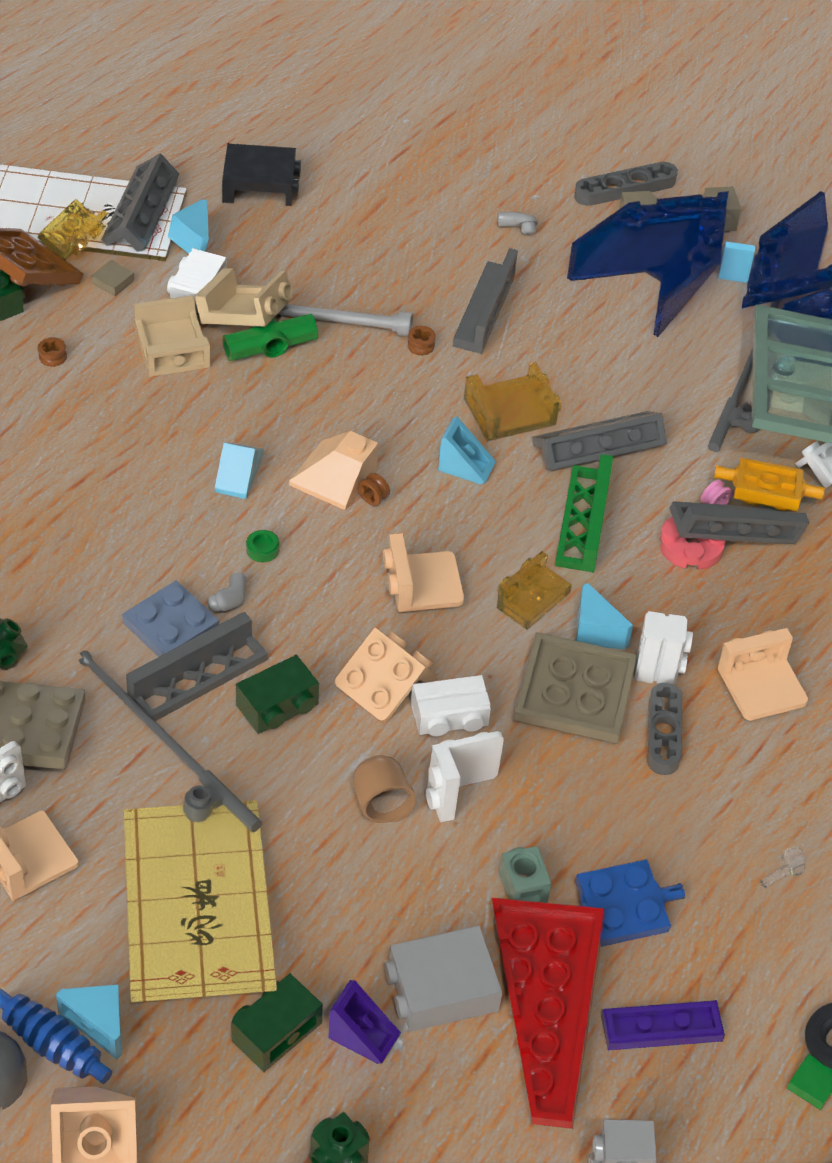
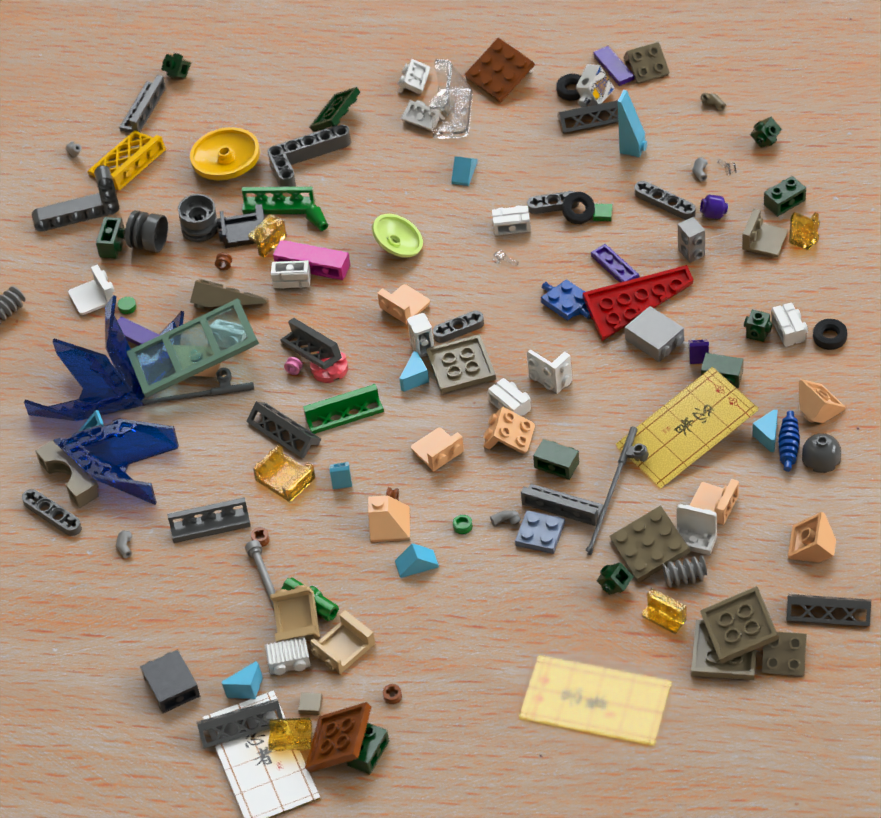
camera: 110 degrees left, 0 degrees up
(379, 776) = (577, 396): medium nougat helmet -> none
(528, 862) = (583, 332): sand green brick -> none
(531, 591) = (412, 407): clear yellow bracket -> none
(768, 484) = (272, 347): light orange plate -> none

